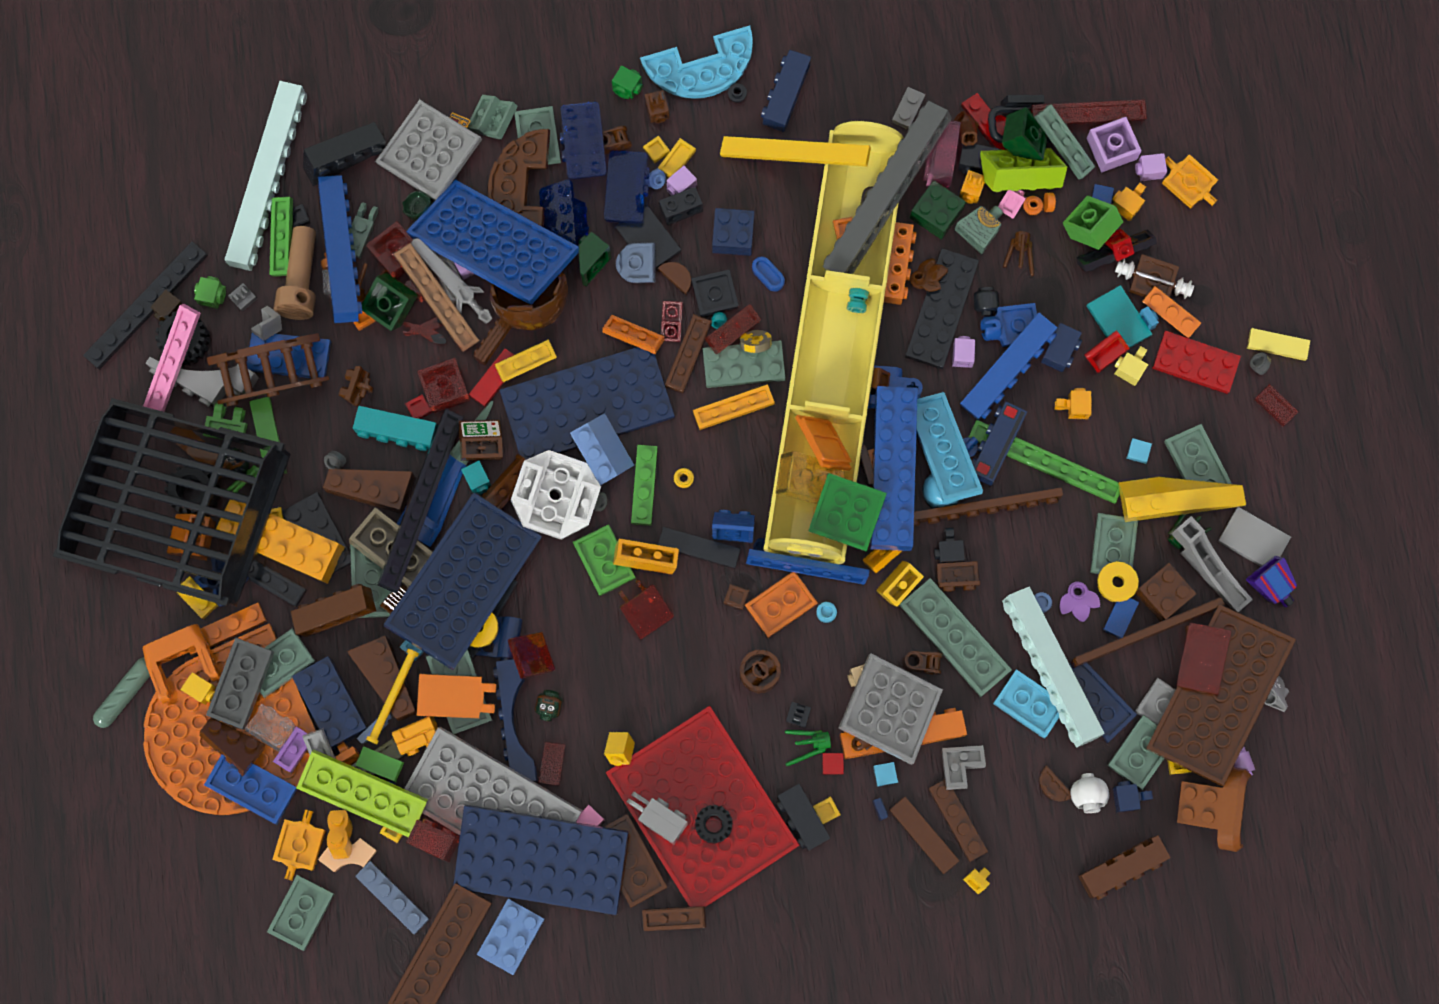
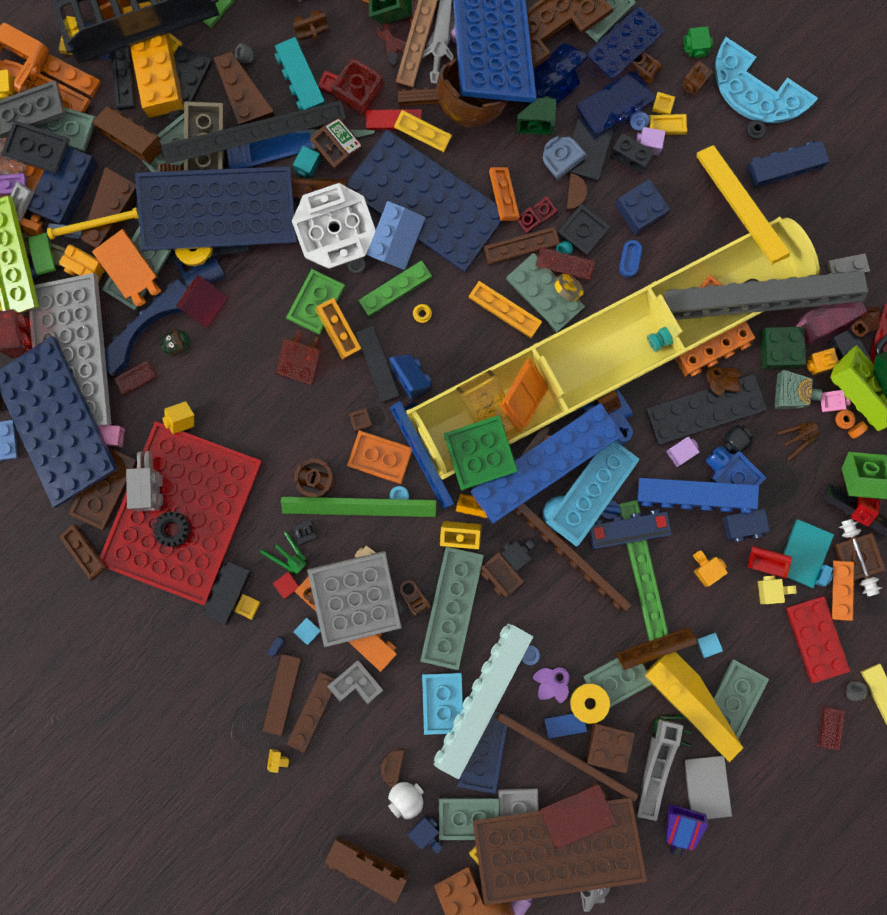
camera: 55 degrees right, 5 degrees up
(283, 697) = (35, 147): none -> black tile
(811, 652) = (358, 506): none -> bright green tile
(1111, 494) = (656, 648): none -> reddish brown tile

